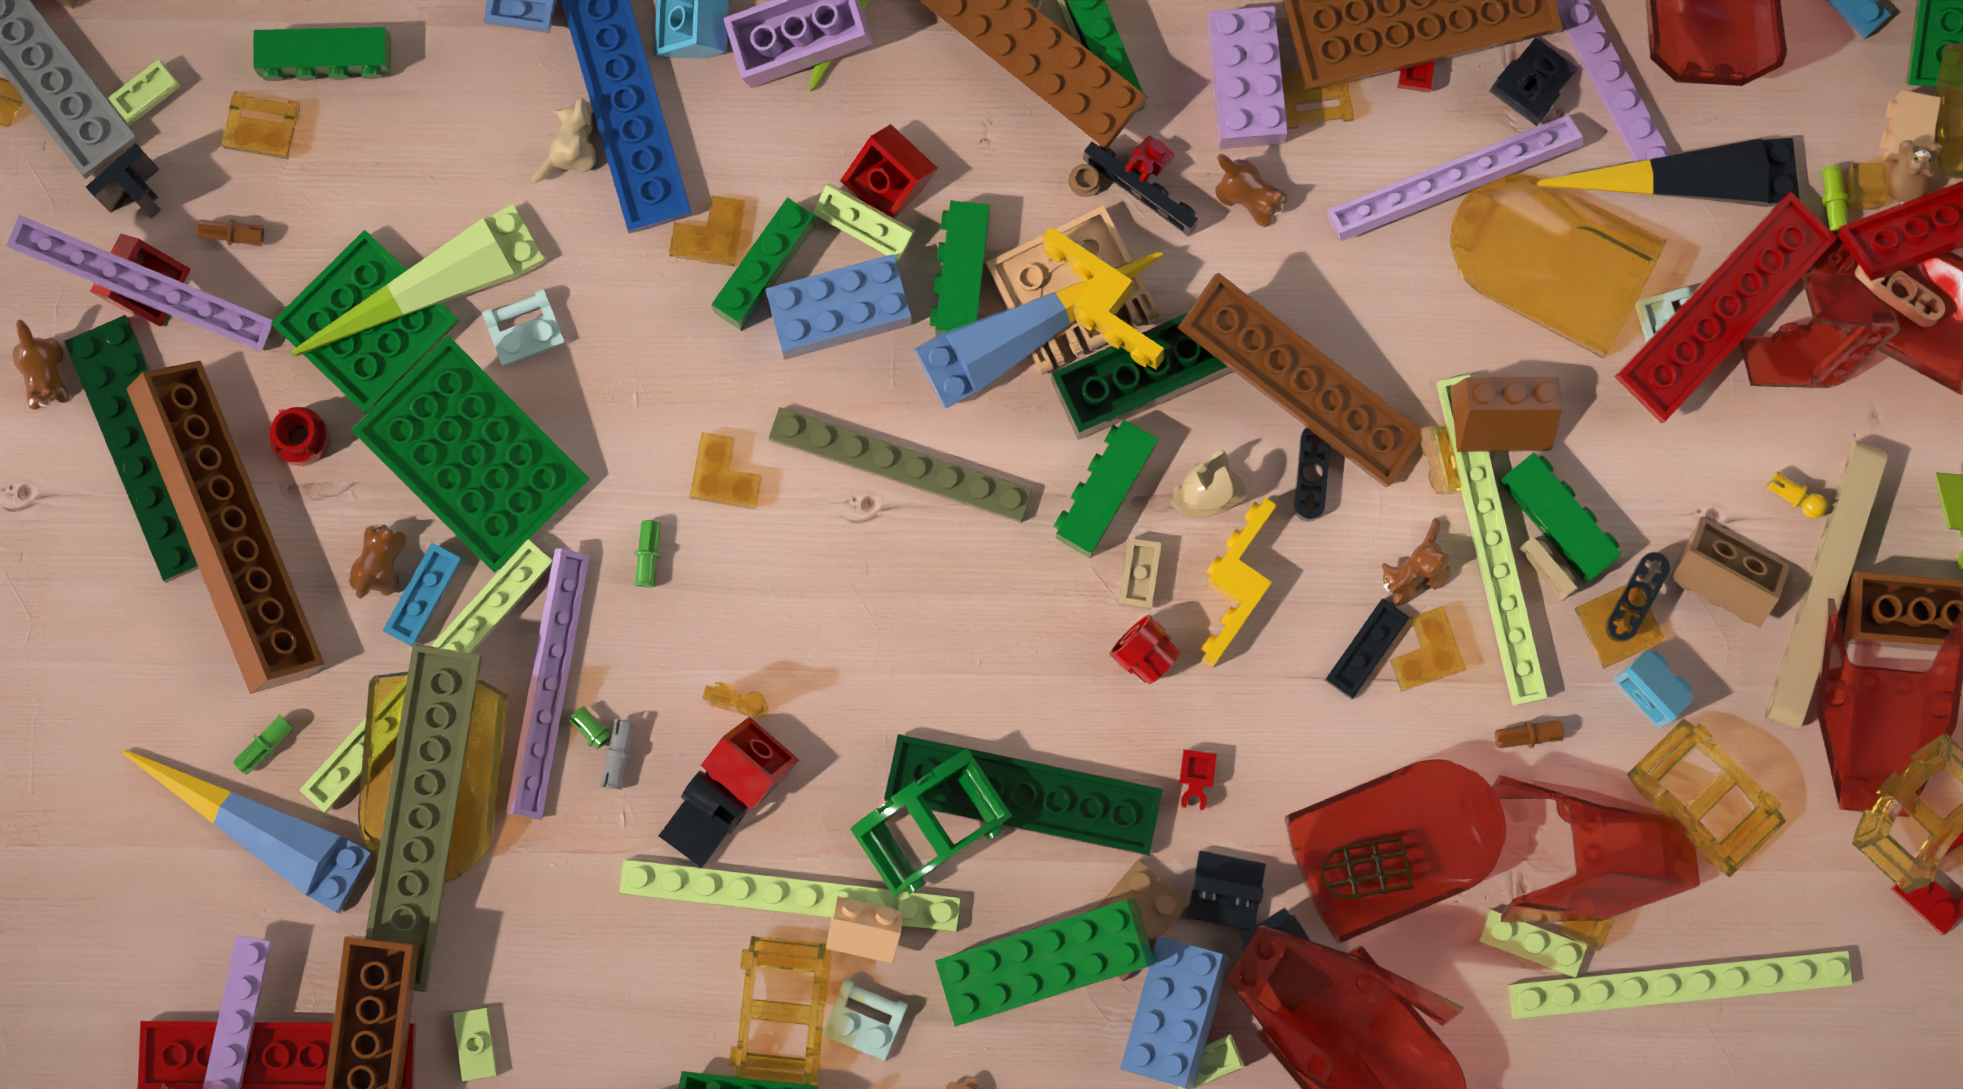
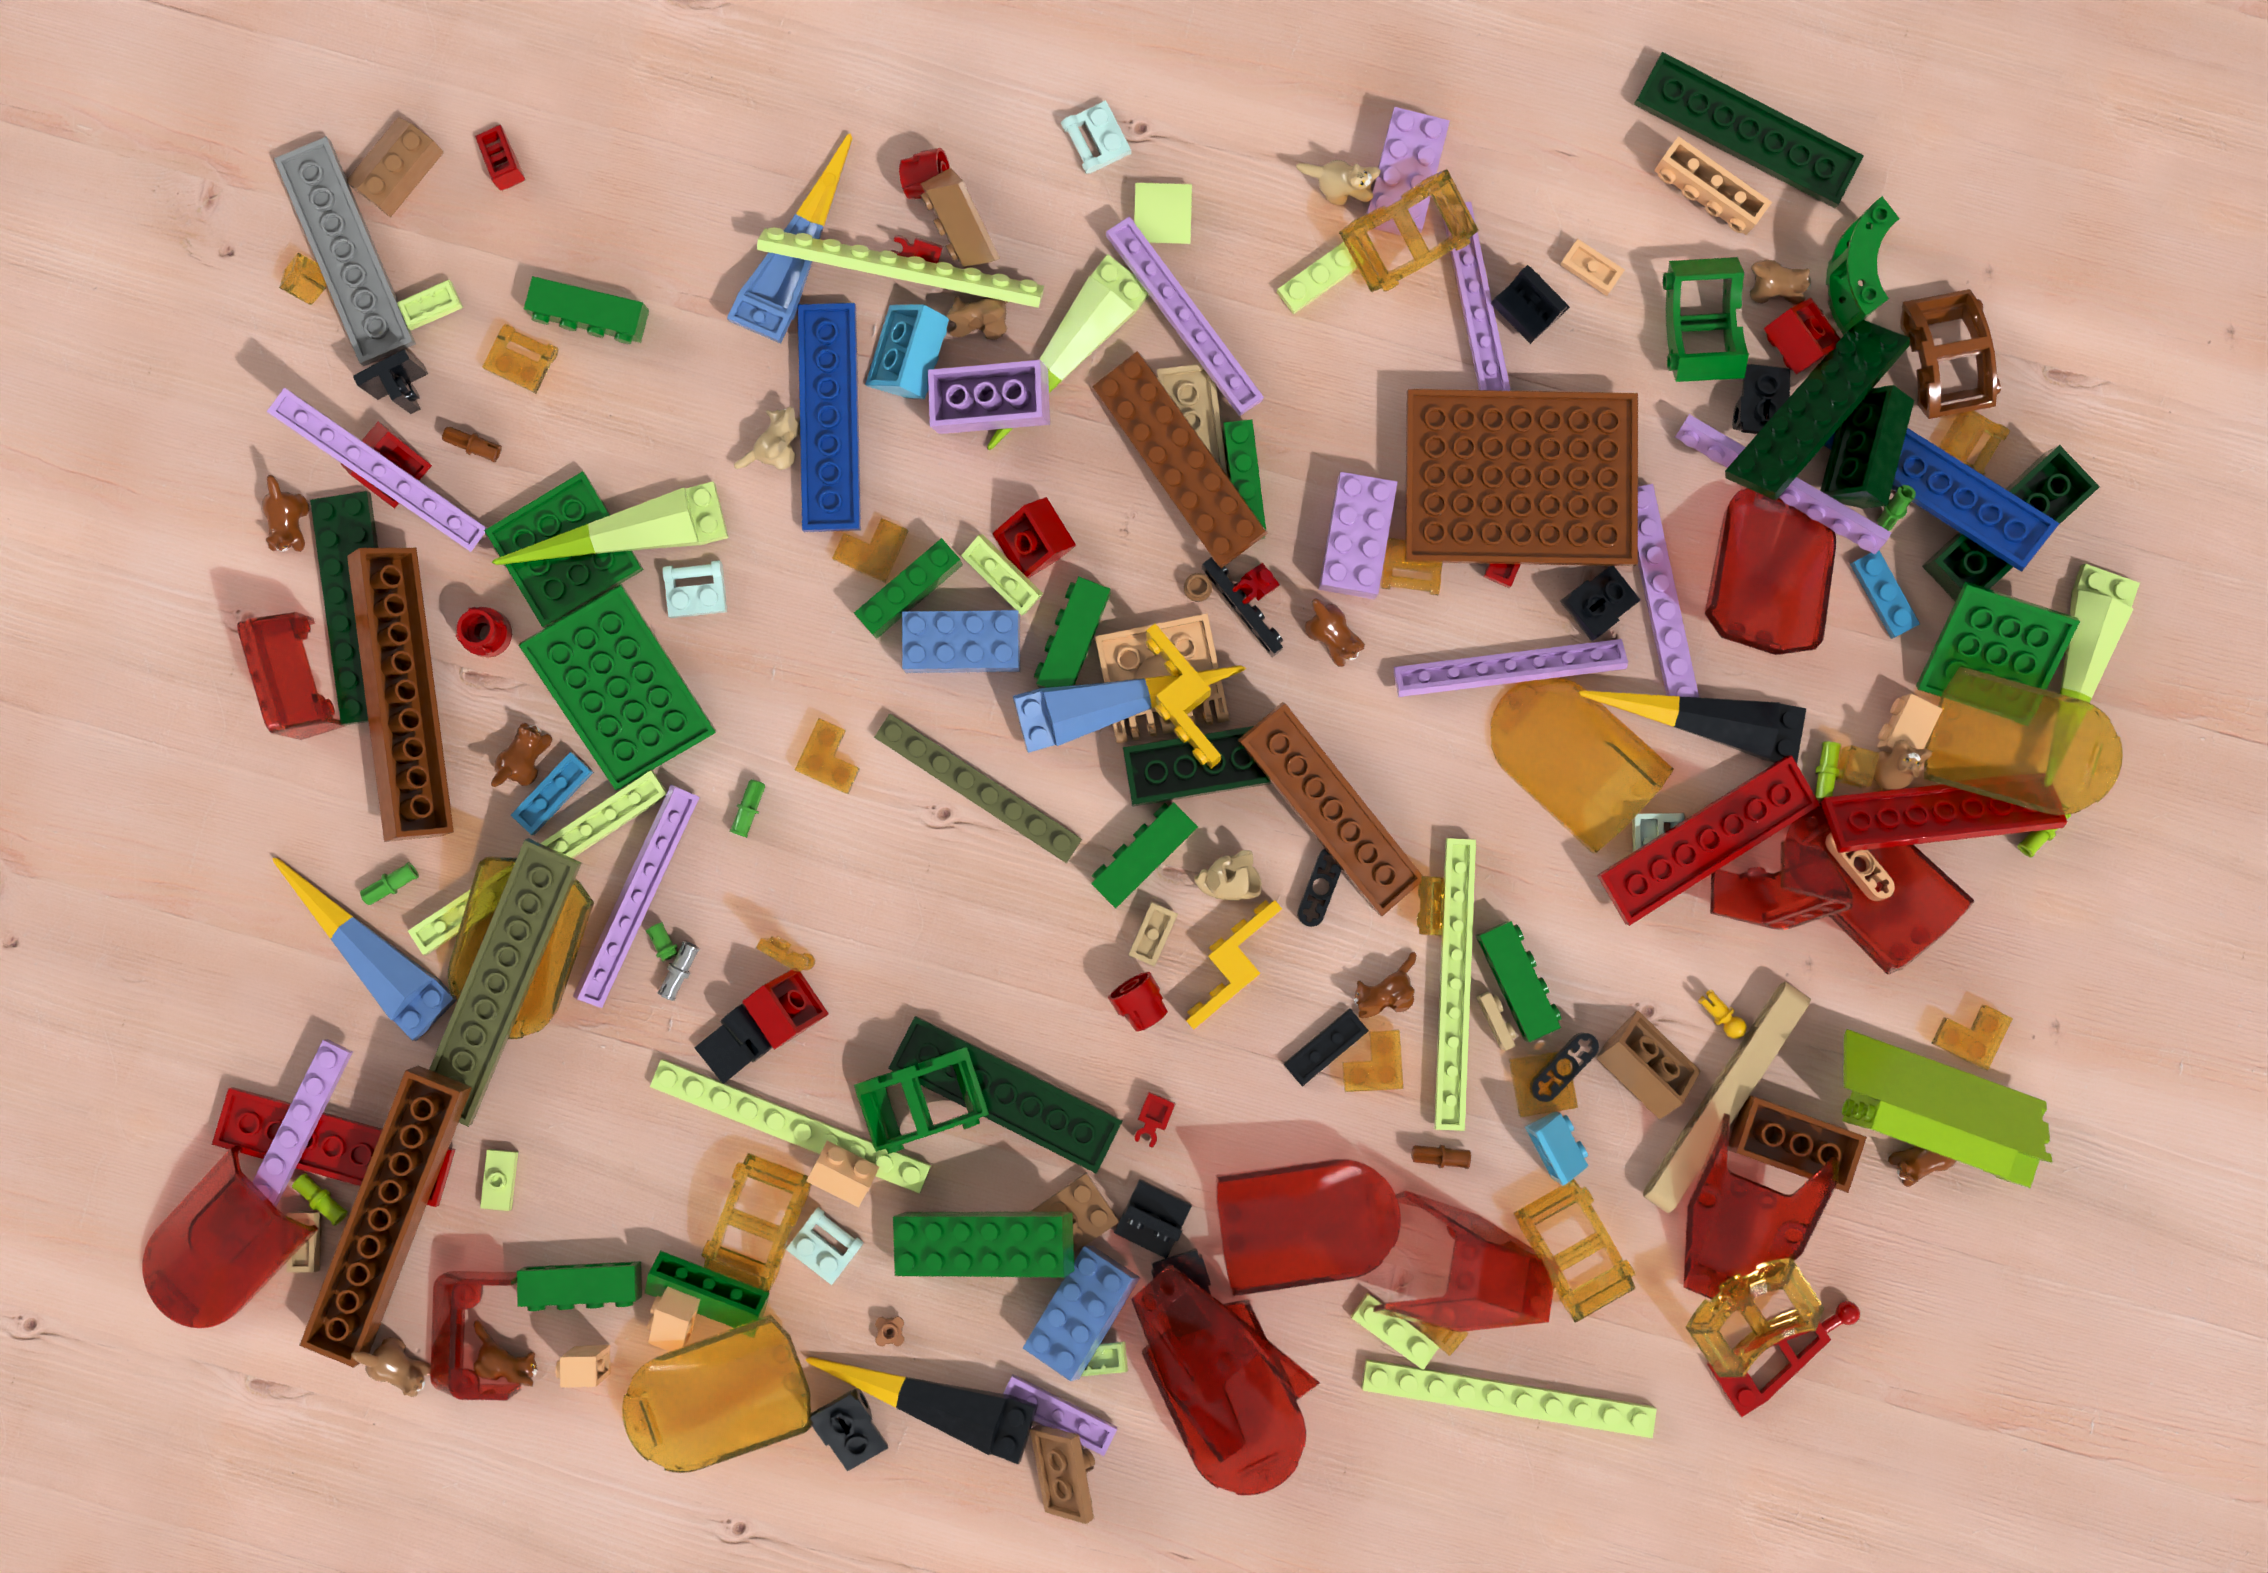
camera: 15 degrees right, 5 degrees up
(95, 537) = (284, 676): none -> clear red windscreen
(1378, 875) = (1283, 1242): dark brown window -> none
(1506, 413) = (1497, 882): dark orange slope -> none

